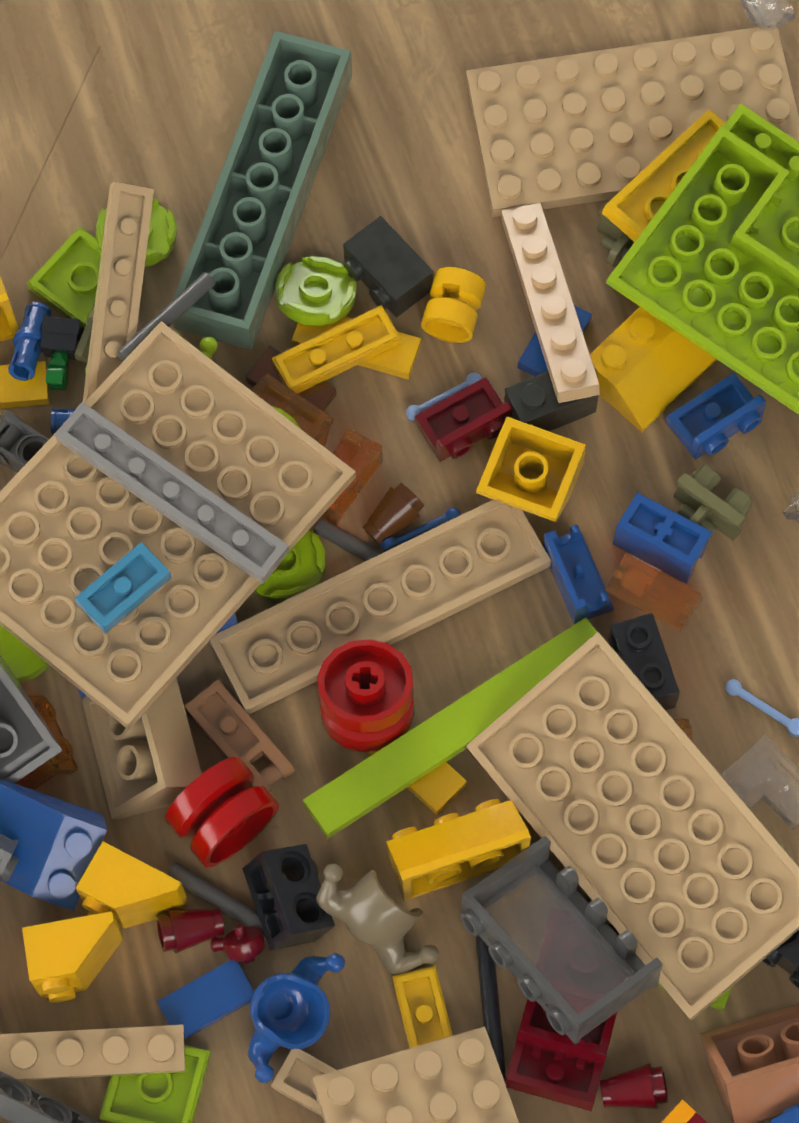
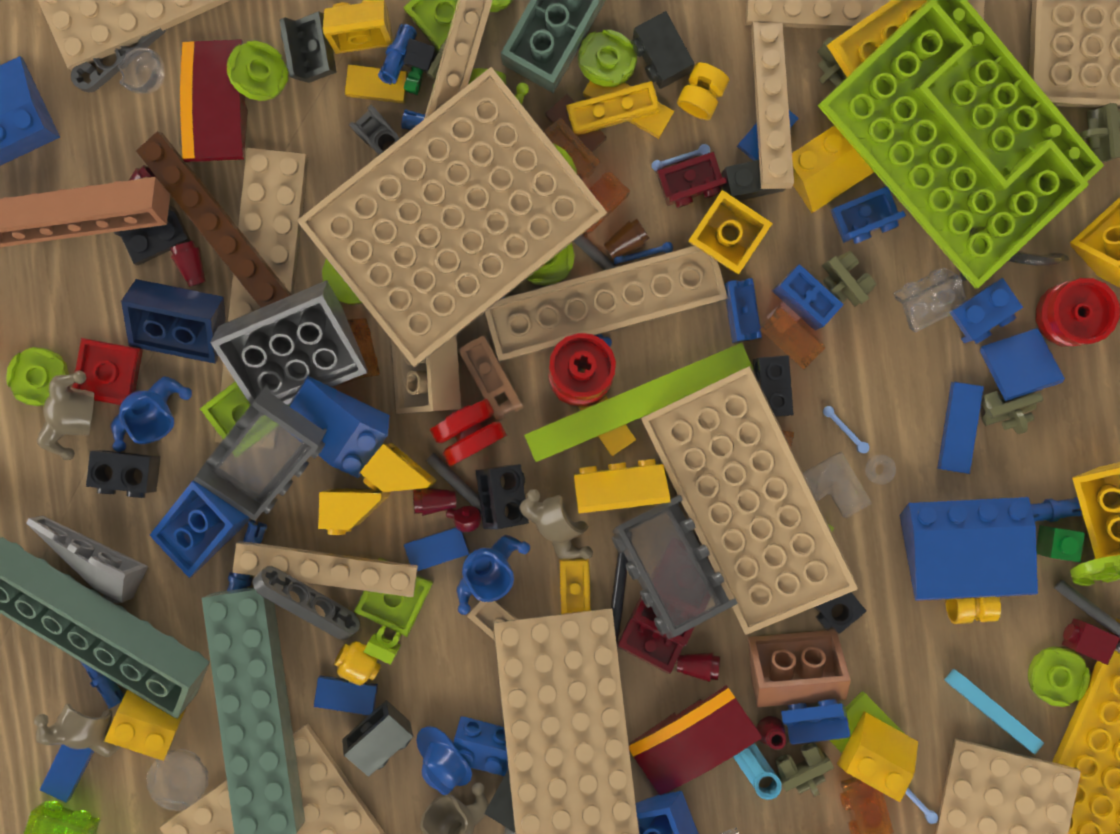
camera: 10 degrees right, 20 degrees up
(123, 587) = (427, 269): dark azure plate -> none
(170, 312) = (499, 59): dark grey bar -> none
(172, 492) = (473, 203): light grey plate -> none

